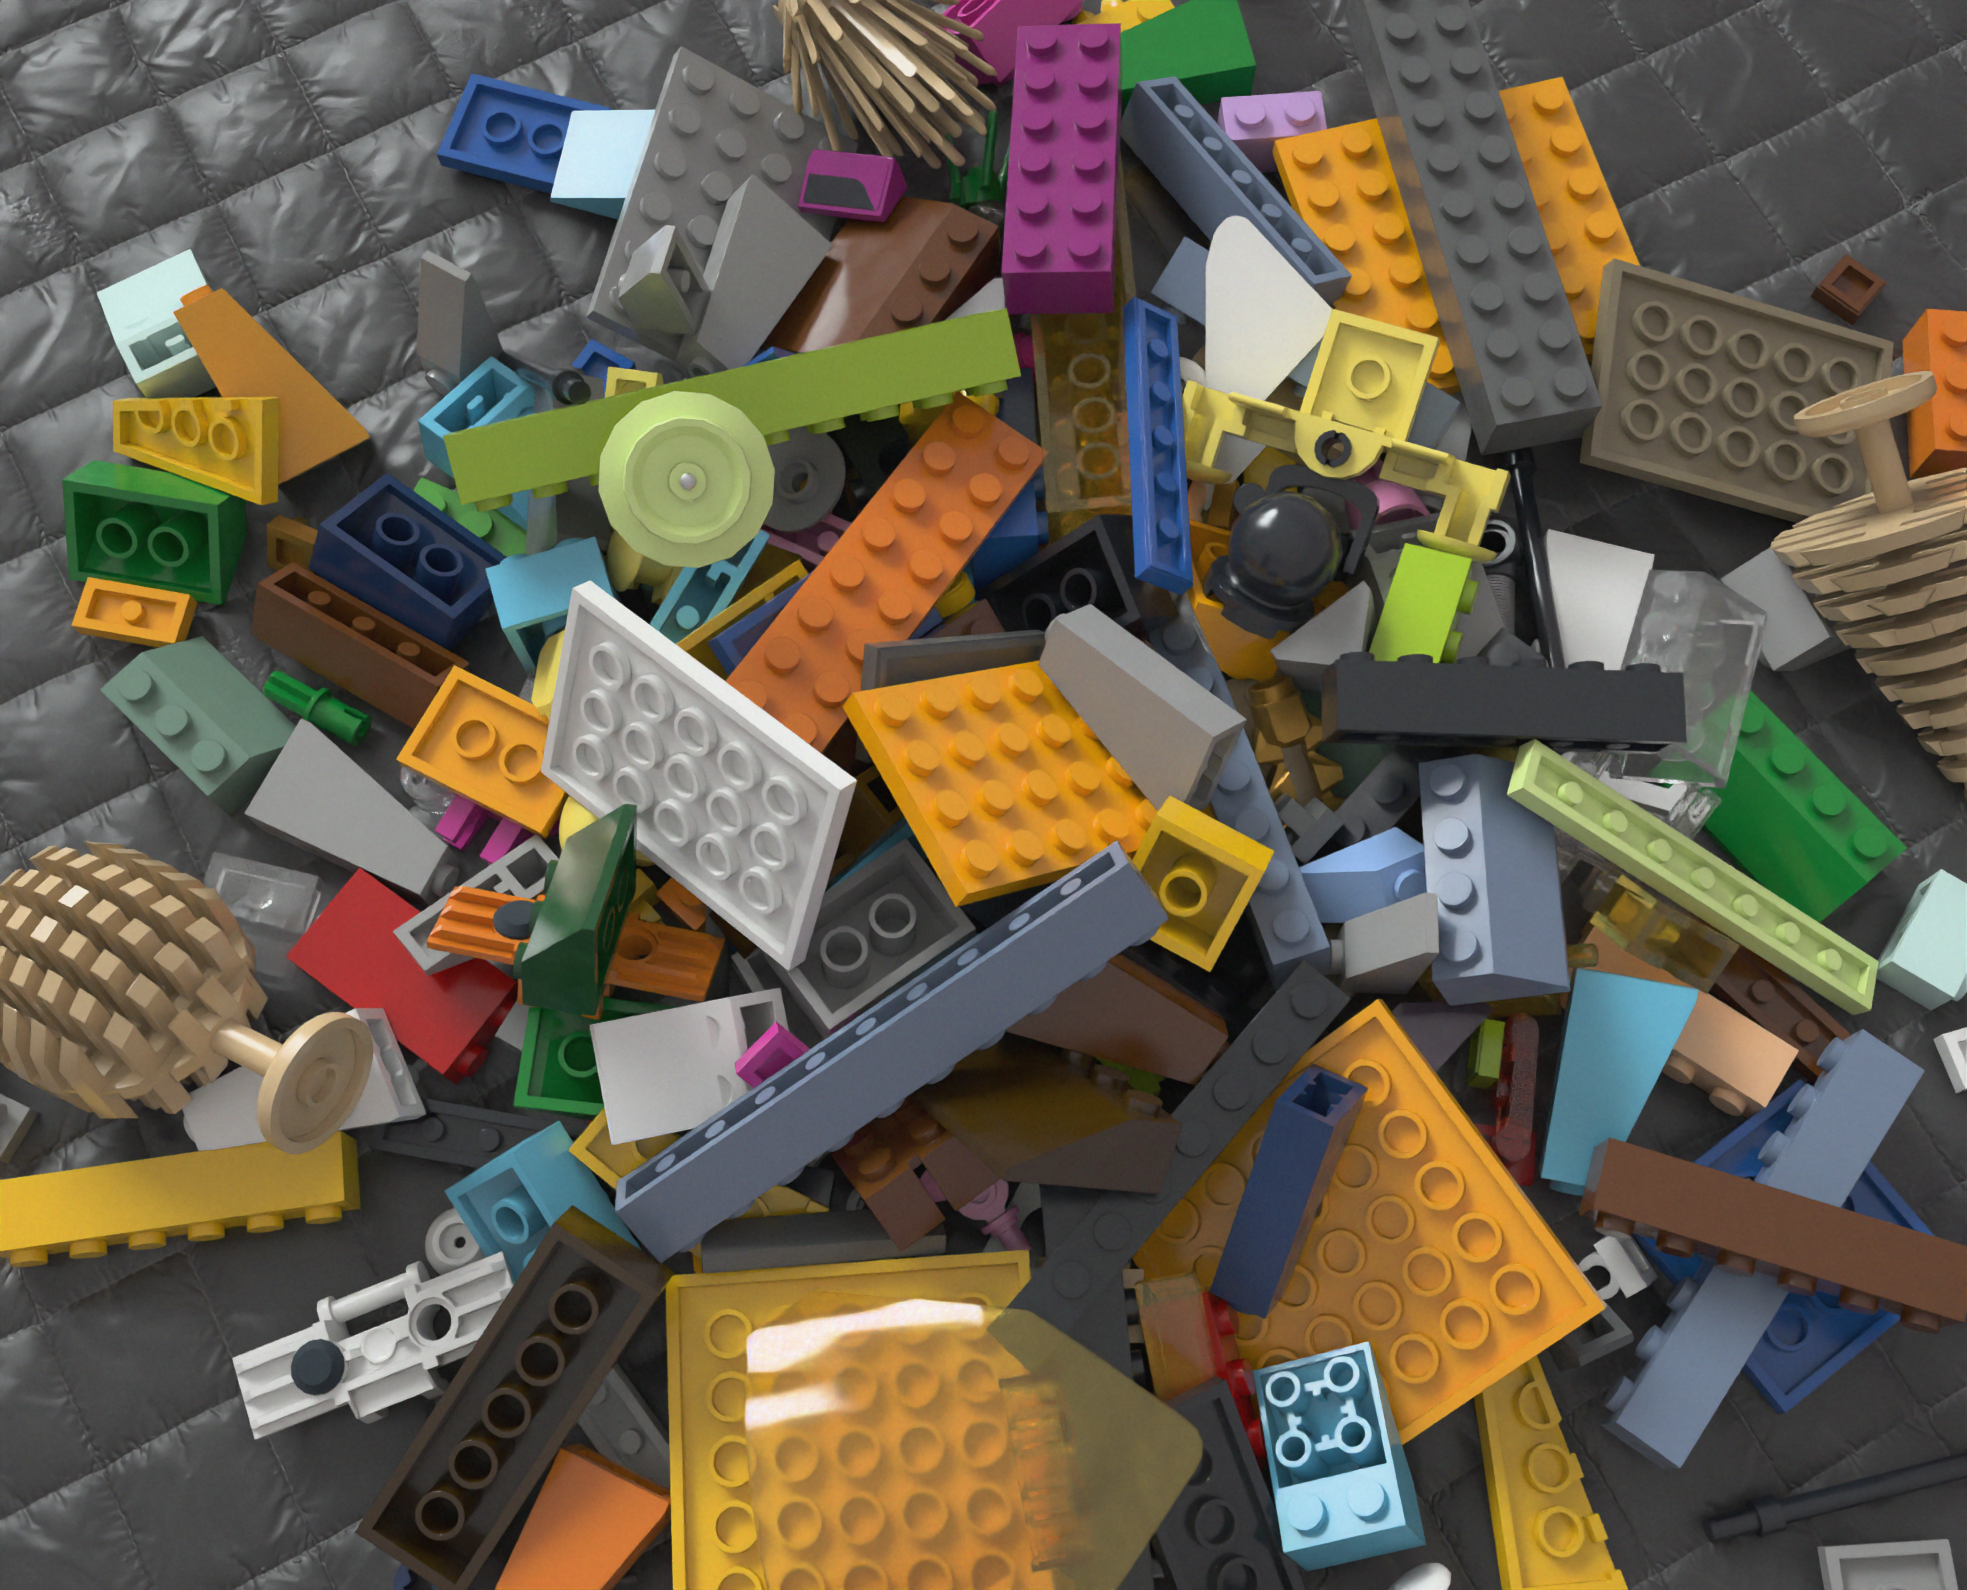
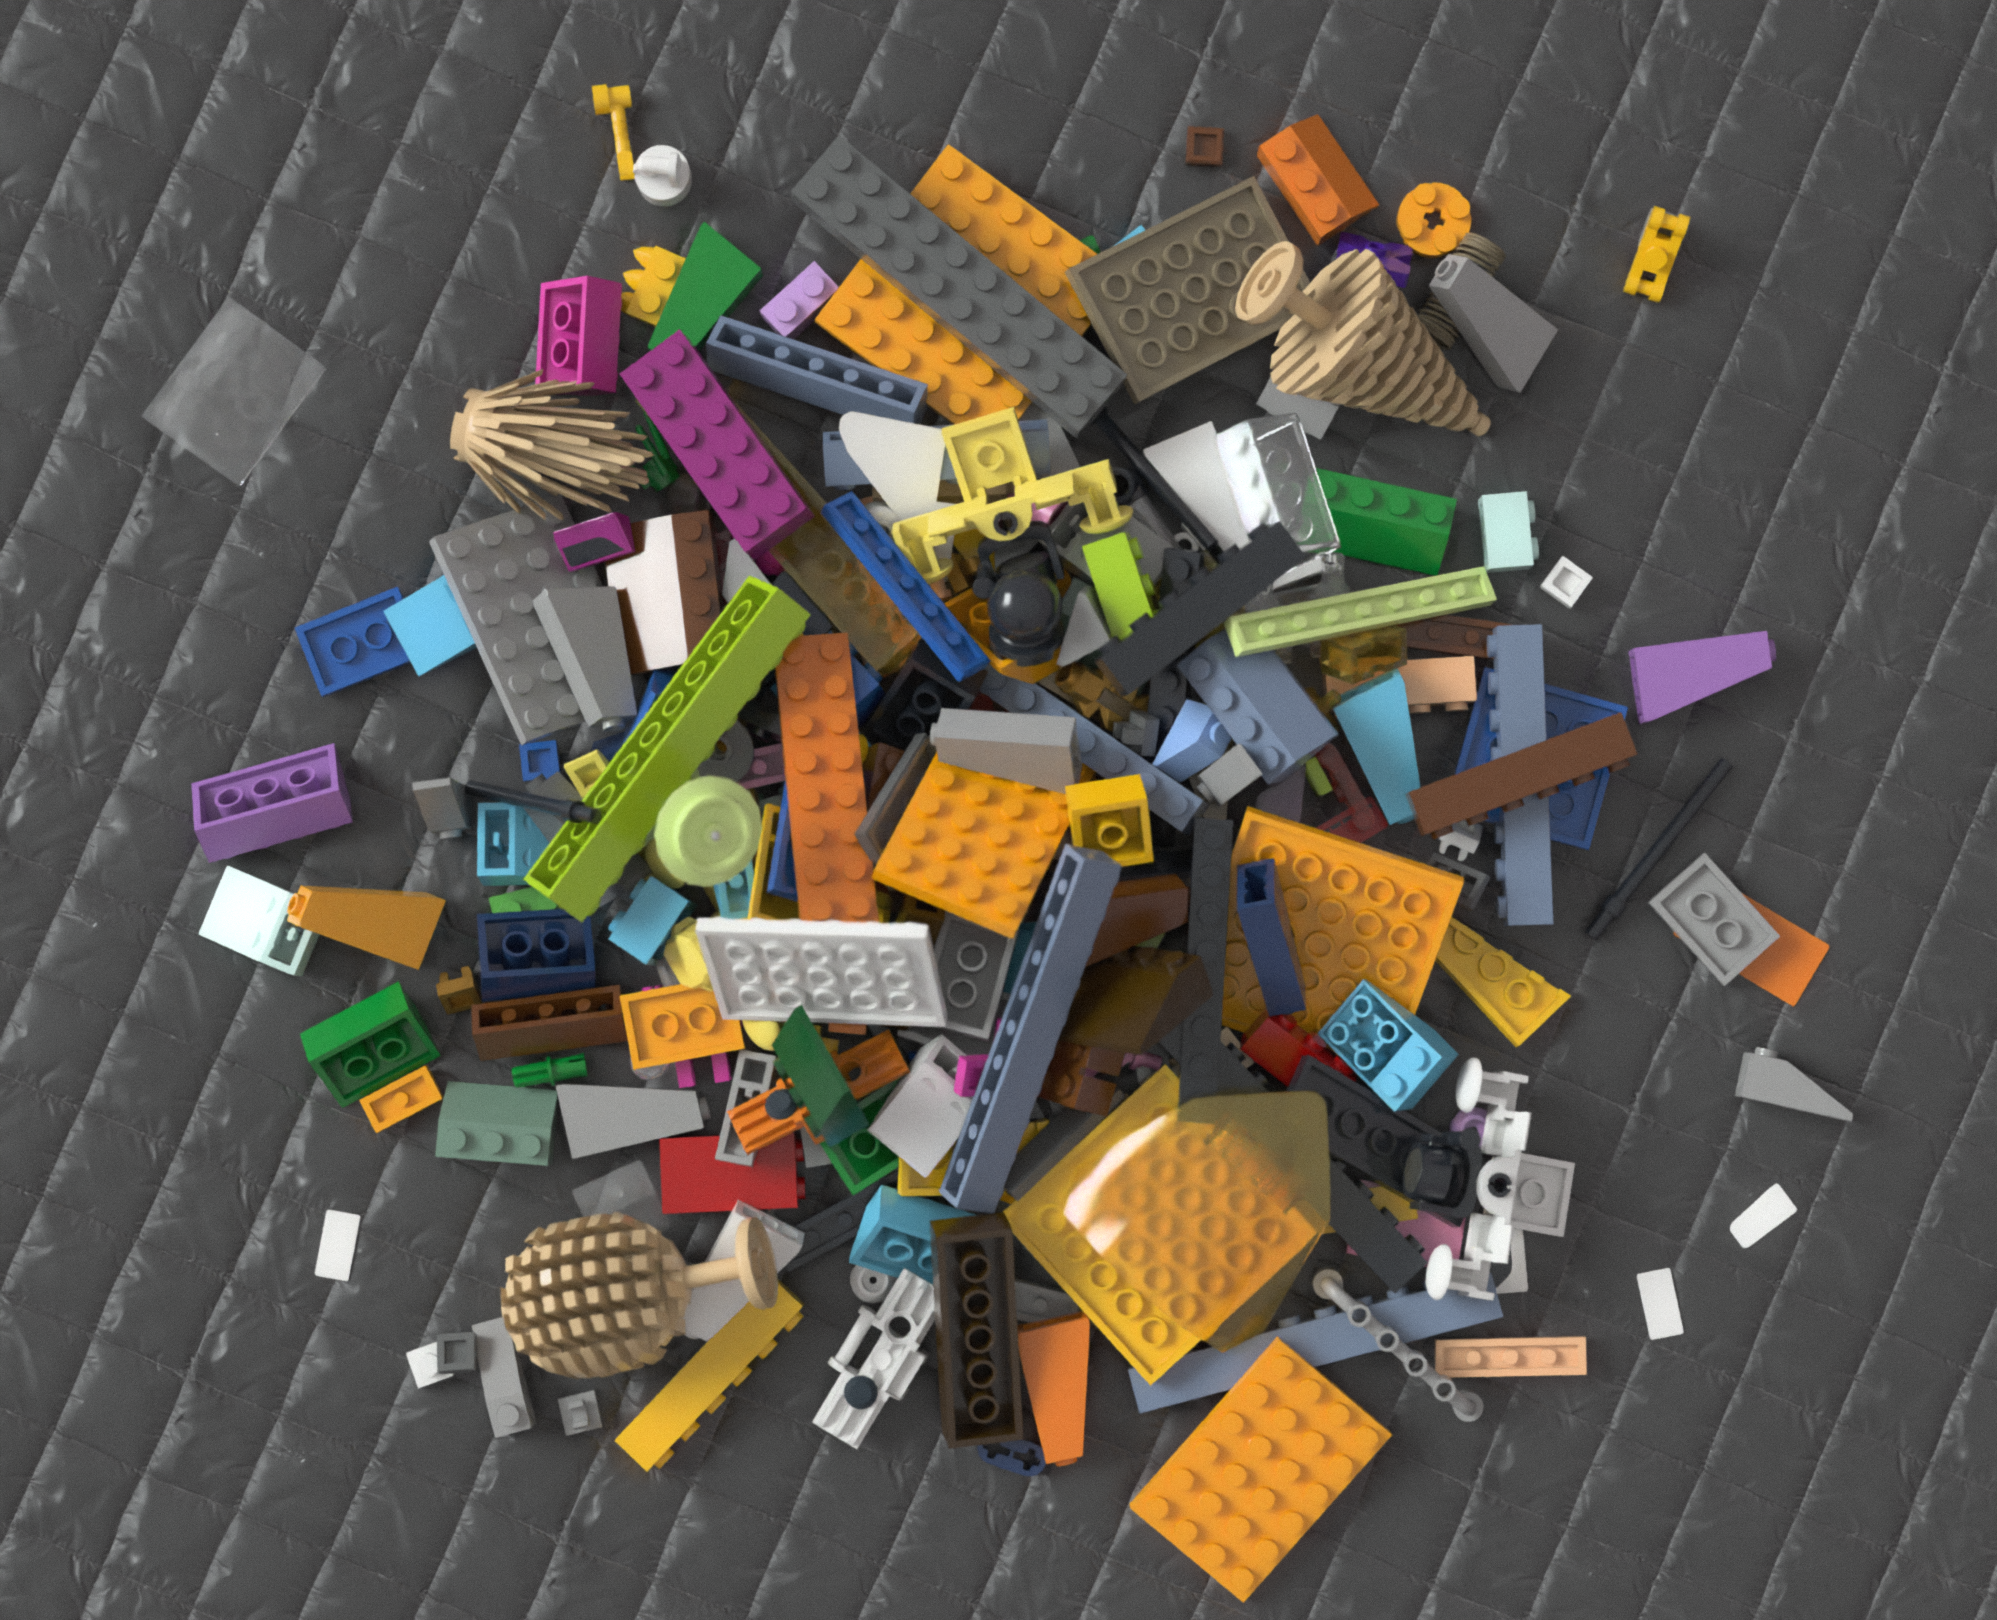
camera: 35 degrees left, 15 degrees up
(205, 439) = (362, 976): yellow wing -> none
(286, 221) = (270, 803): none -> medium lavender slope
(663, 285) = (561, 703): light grey slope -> none
(1175, 1333) = (1268, 1049): clear yellow tile -> none

